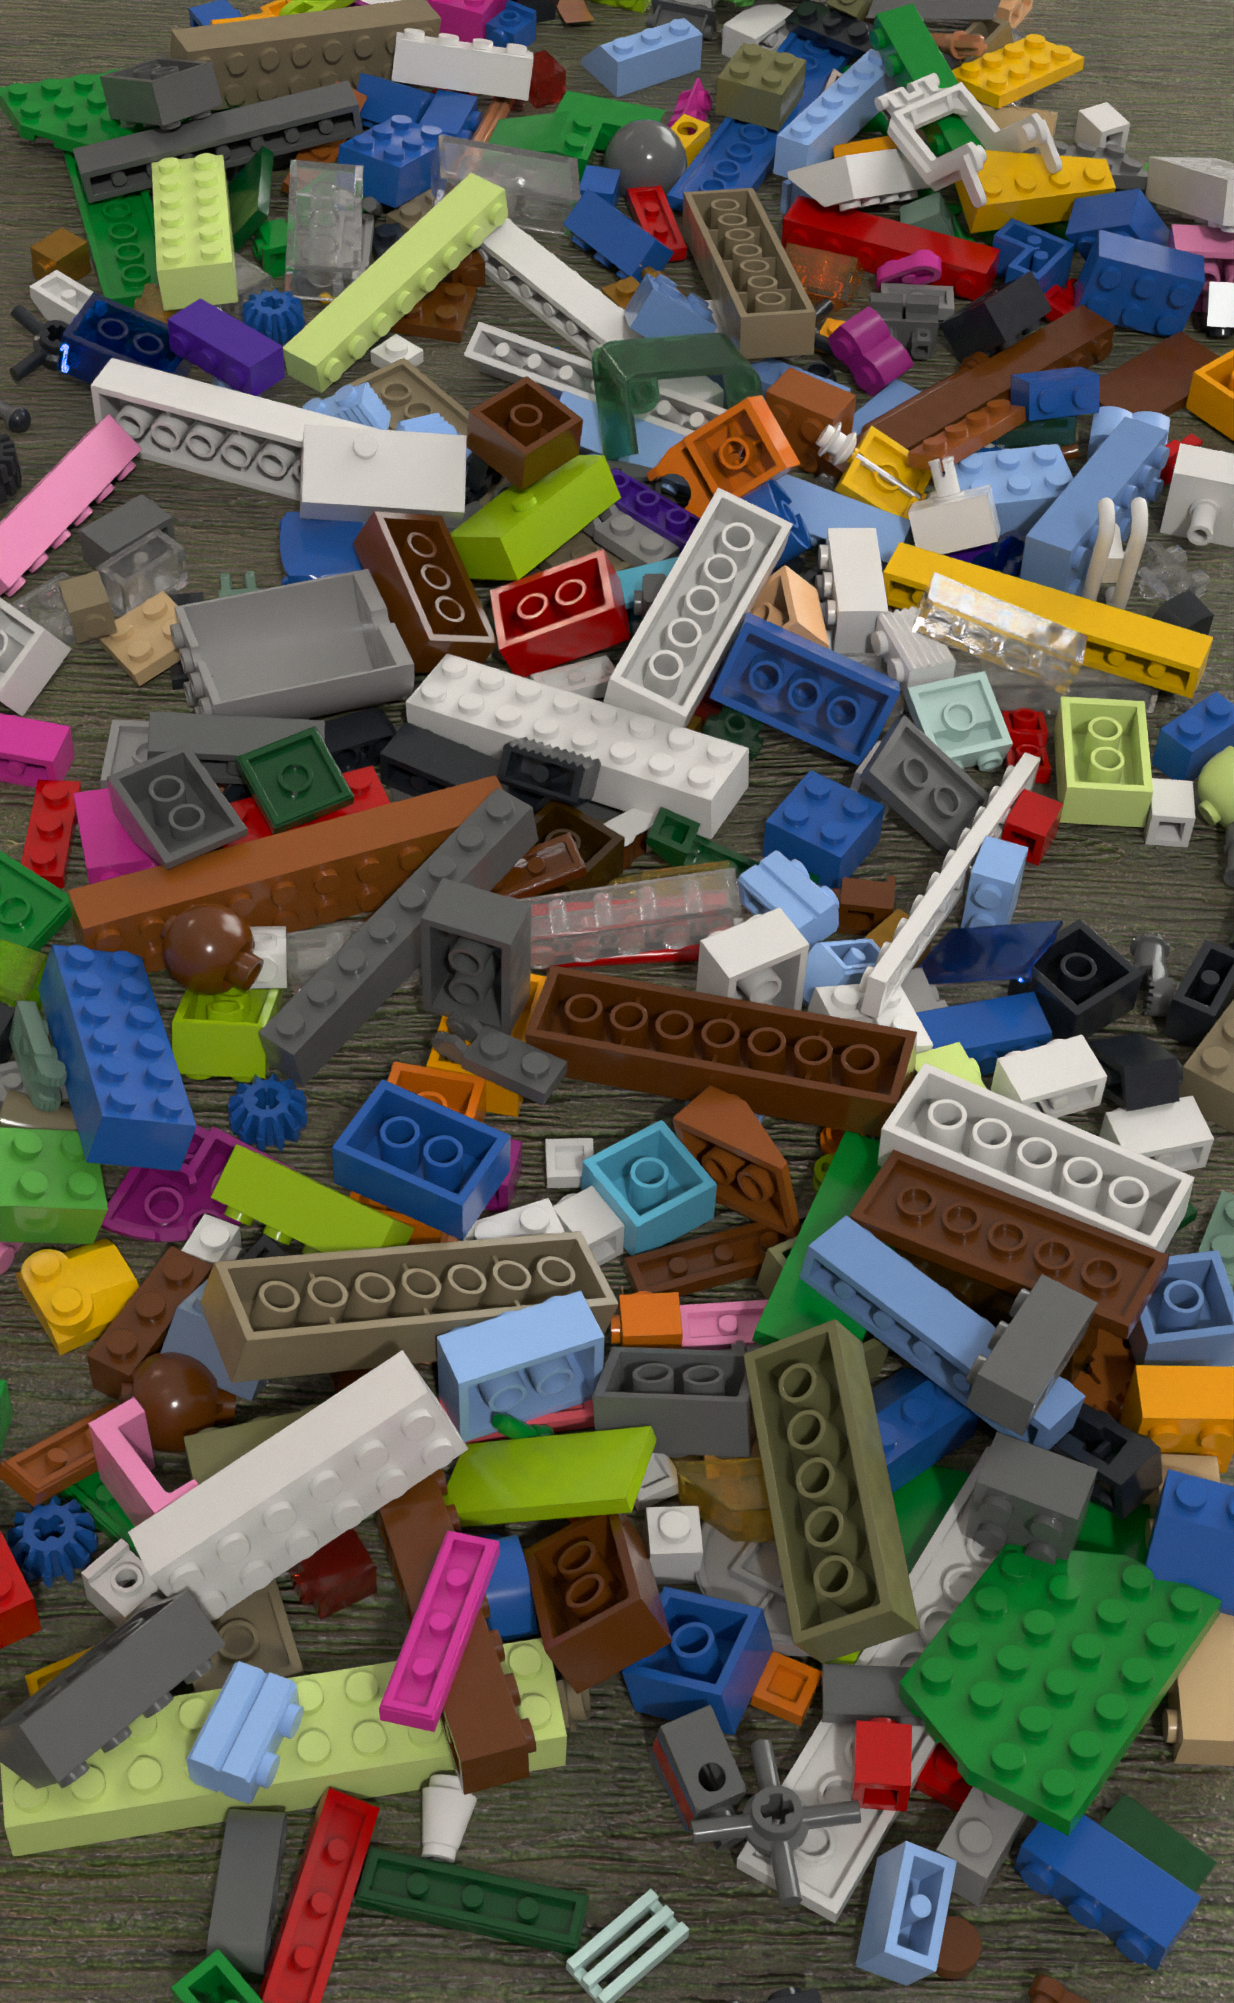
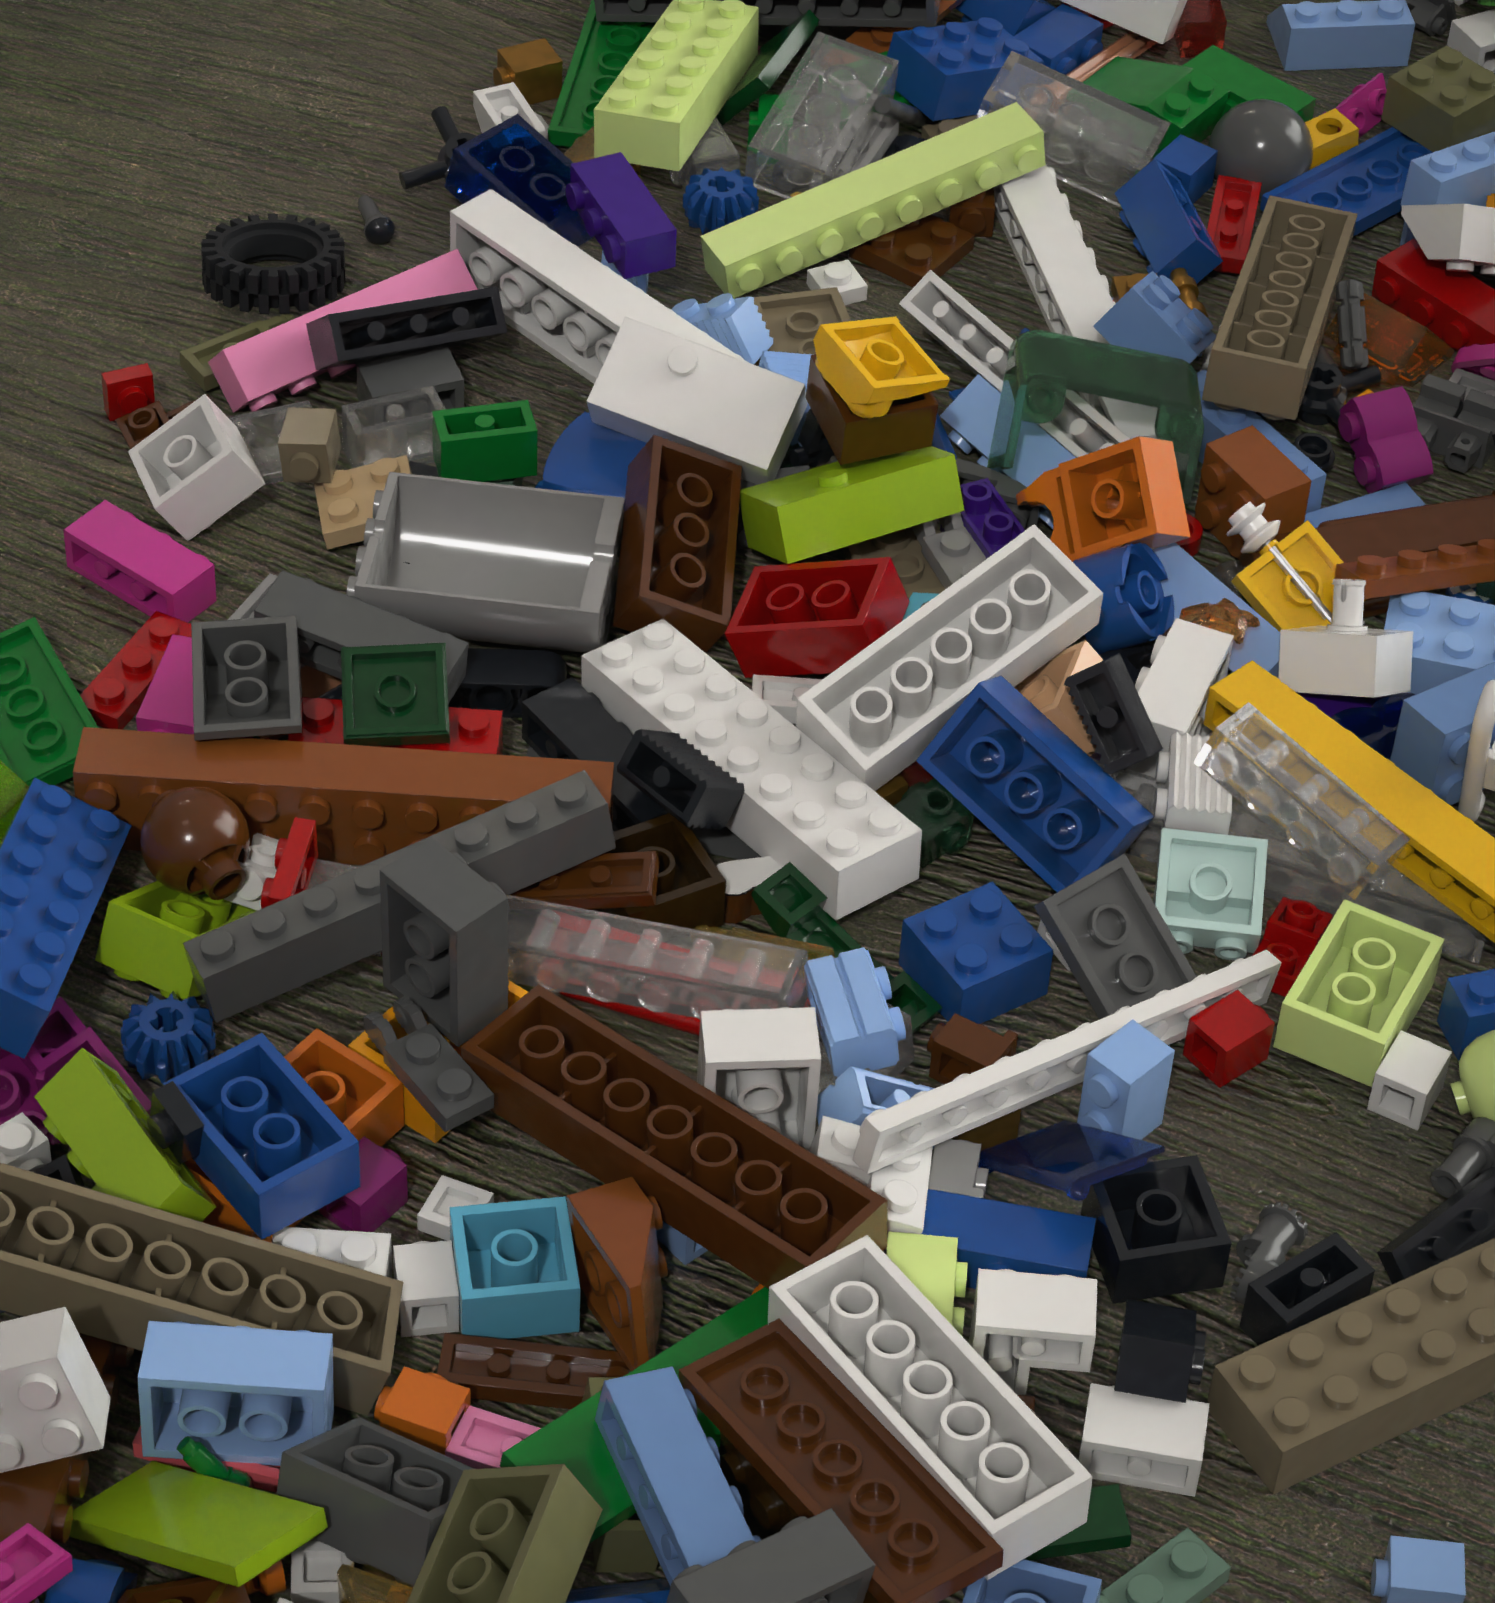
camera: 25 degrees right, 5 degrees down
(106, 490) = (406, 327): none -> black brick
(227, 560) = (485, 442): none -> green brick
(296, 935) = (294, 863): none -> red plate
(357, 1174) = (175, 1123): none -> black plate
(528, 403) = (874, 364): none -> yellow slope
(802, 269) = (1351, 324): none -> dark grey axle
(839, 613) = (1113, 714): none -> black brick
(852, 516) = (1220, 616): none -> clear orange hat

